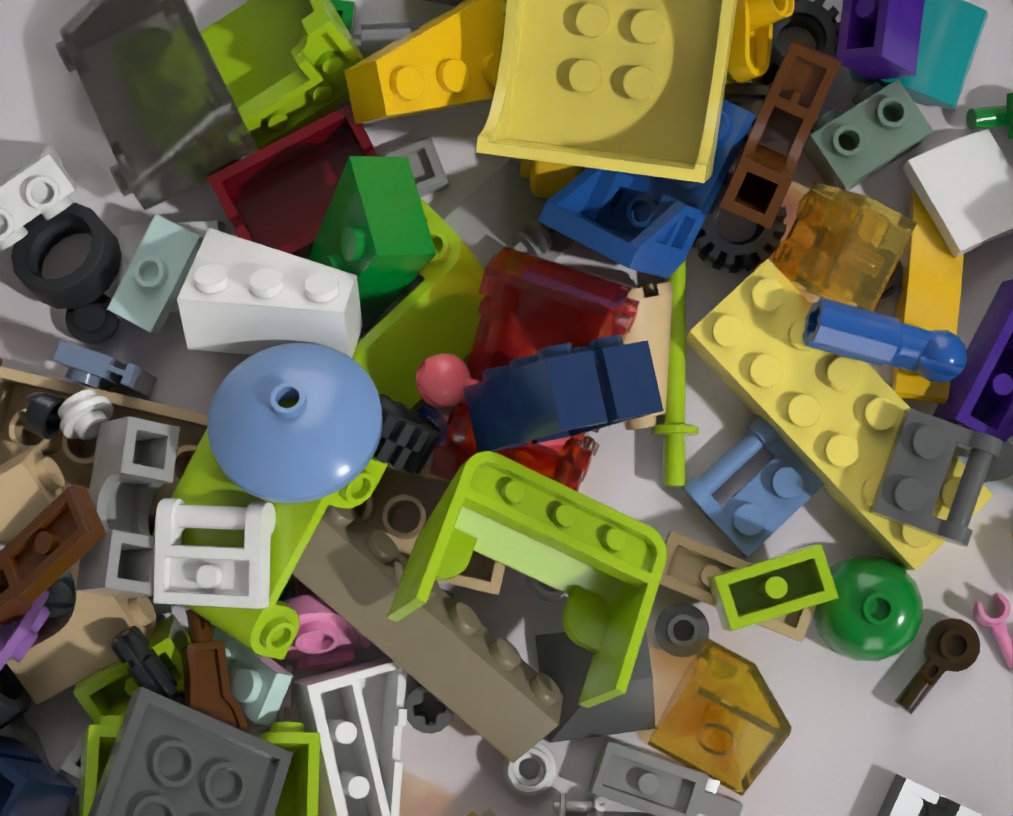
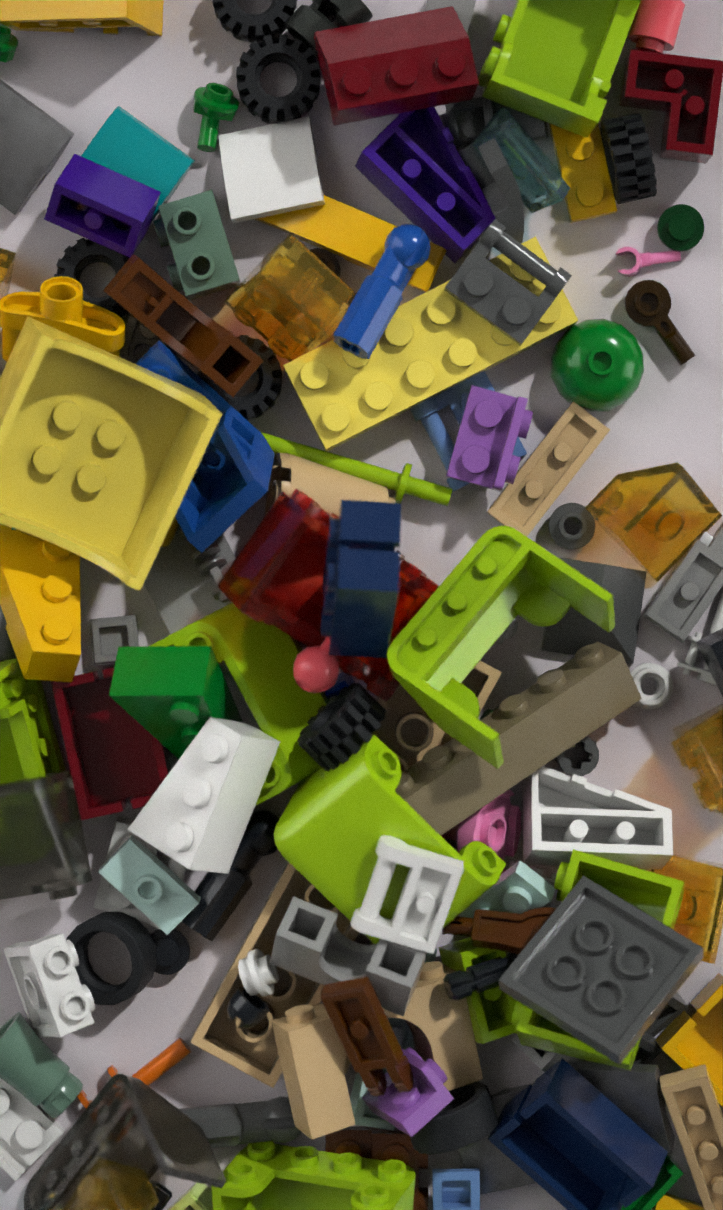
camera: 70 degrees left, 5 degrees up
(101, 370) = (219, 955): sand blue plate -> none
(170, 359) = (222, 891): none -> black piece
(298, 449) = (347, 803): medium blue dish -> none
(753, 507) = (488, 439): none -> medium lavender bracket
(772, 587) = (559, 444): lime brick -> none

